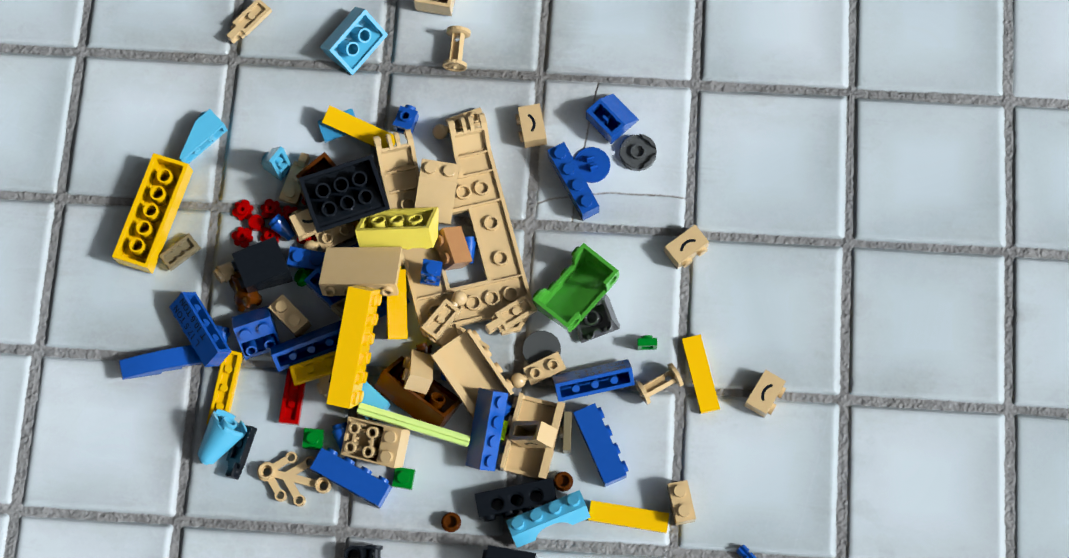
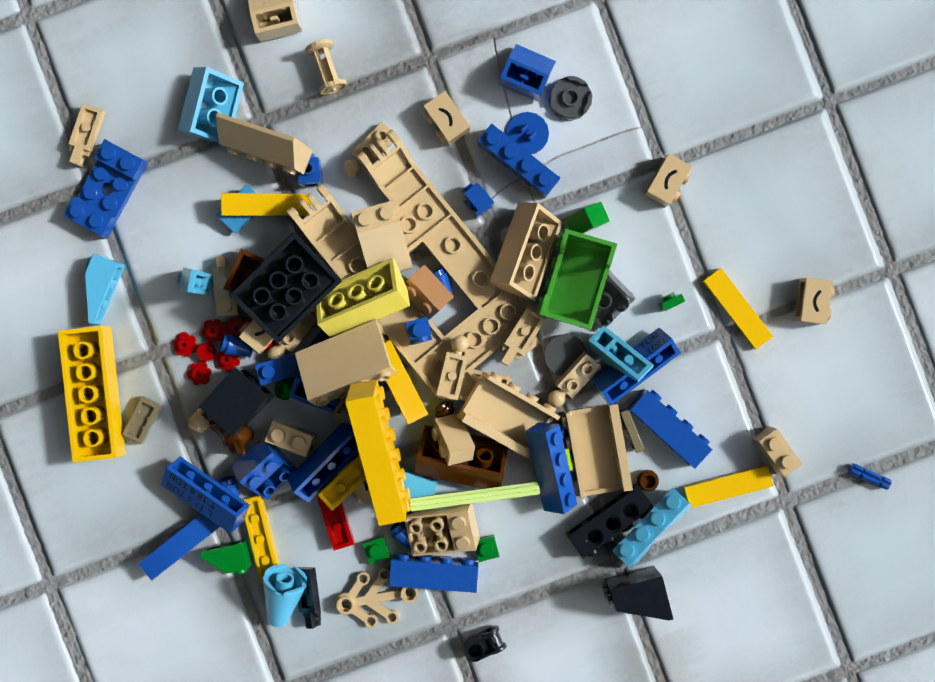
camera: 30 degrees left, 15 degrees up
(194, 390) = (229, 557): none -> green slope
(257, 54) = (94, 208): none -> blue piece
(379, 83) = (262, 144): none -> tan slope
(451, 522) = (554, 571): reddish brown plate -> none
(527, 197) = (477, 199): none -> blue brick
(533, 434) = (601, 453): tan brick -> none
(546, 251) = (526, 250): none -> tan slope
(582, 360) = (619, 354): none -> medium azure slope
(610, 248) = (587, 218): none -> green slope
(658, 383) = (702, 339): tan hose -> none

